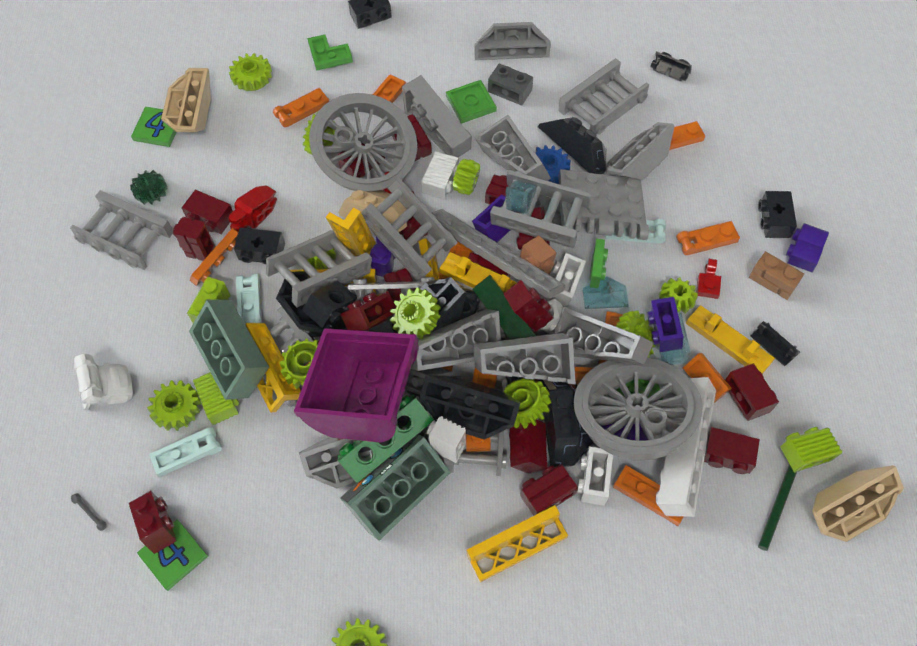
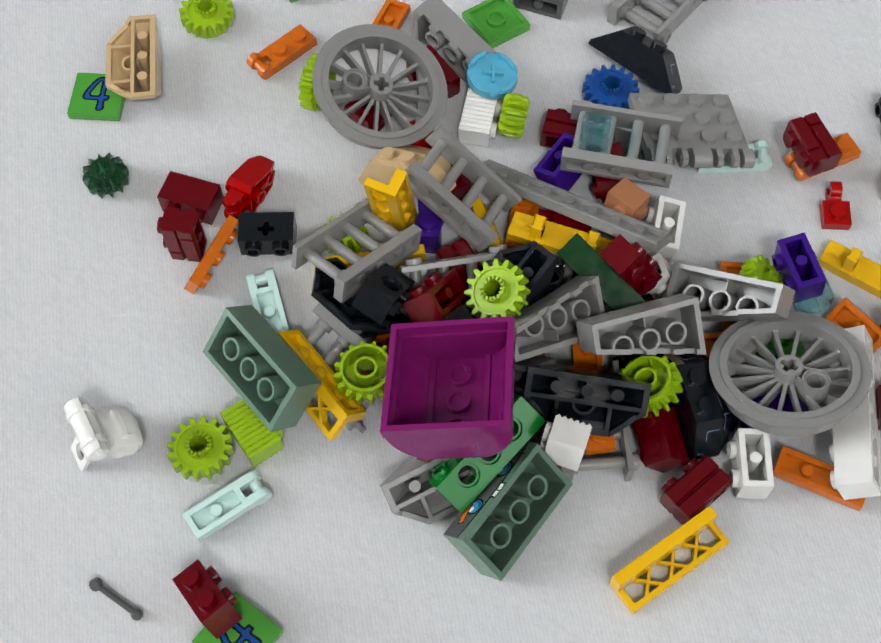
camera: 10 degrees left, 0 degrees up
(123, 211) = (82, 210): light grey fence -> none
(211, 289) = (217, 298): lime brick -> none
(454, 143) = (492, 75): none -> medium azure tile
(510, 149) = (564, 74): light grey wedge -> none
(598, 261) = (698, 204): bright green plate -> none
(608, 295) = (712, 241): clear light blue slope -> none
(643, 152) = (724, 60): light grey wedge -> none
(682, 292) = (803, 222): lime gear -> none
(686, 135) = (765, 35): orange plate -> none
(697, 227) = (811, 144): none -> dark red brick

